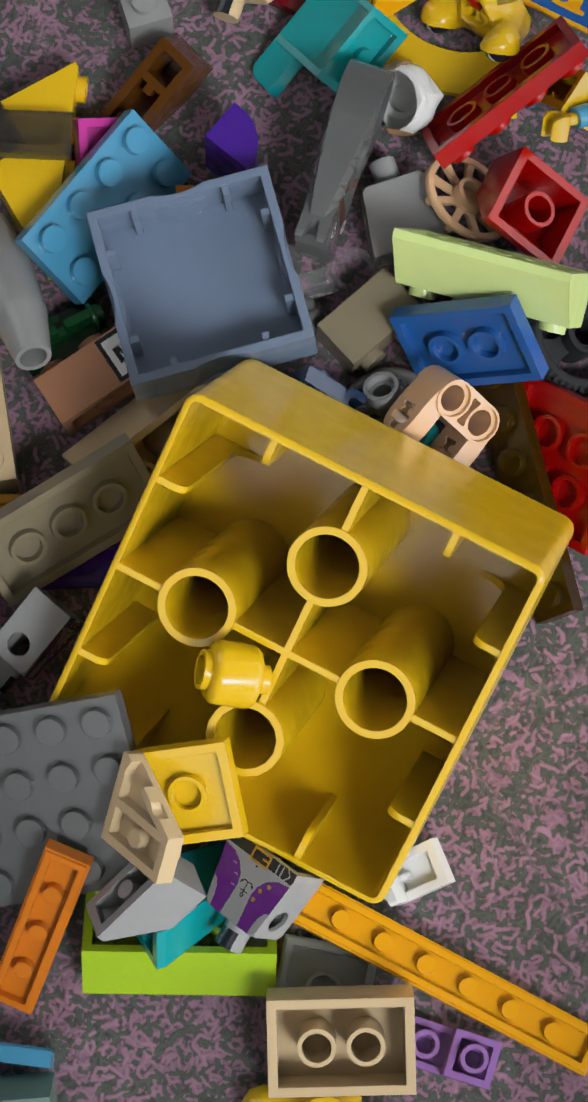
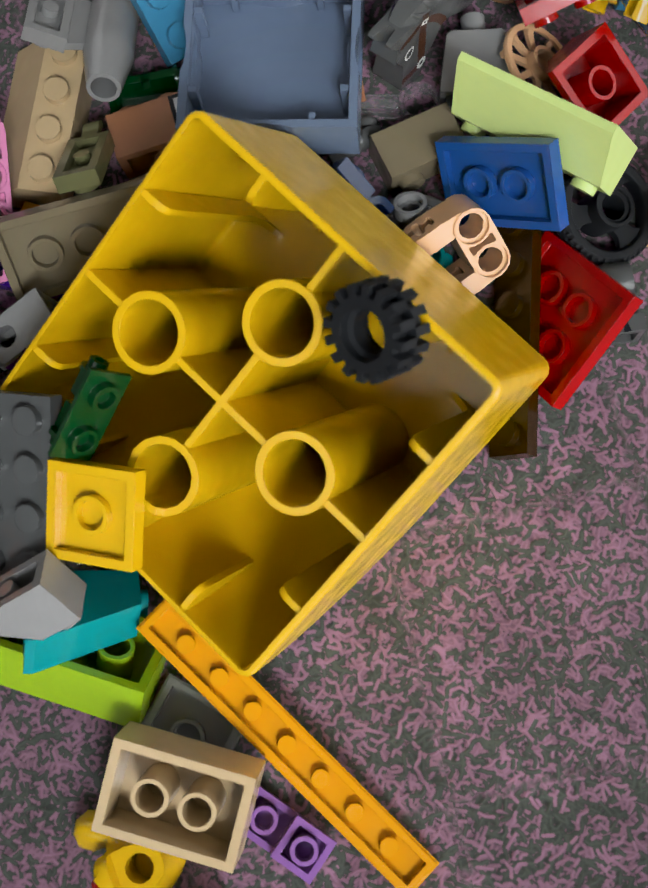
camera: 25 degrees right, 0 degrees up
(38, 437) = (84, 160): none -> olive plate
(141, 821) = (34, 528): tan wing -> none
(151, 716) = (90, 412): none -> dark green hinge
(232, 674) = (161, 407): yellow head -> none
(257, 893) = (138, 631): torso -> none
(421, 873) = (308, 656): white bracket -> none
(435, 536) = (399, 323): none -> black tyre

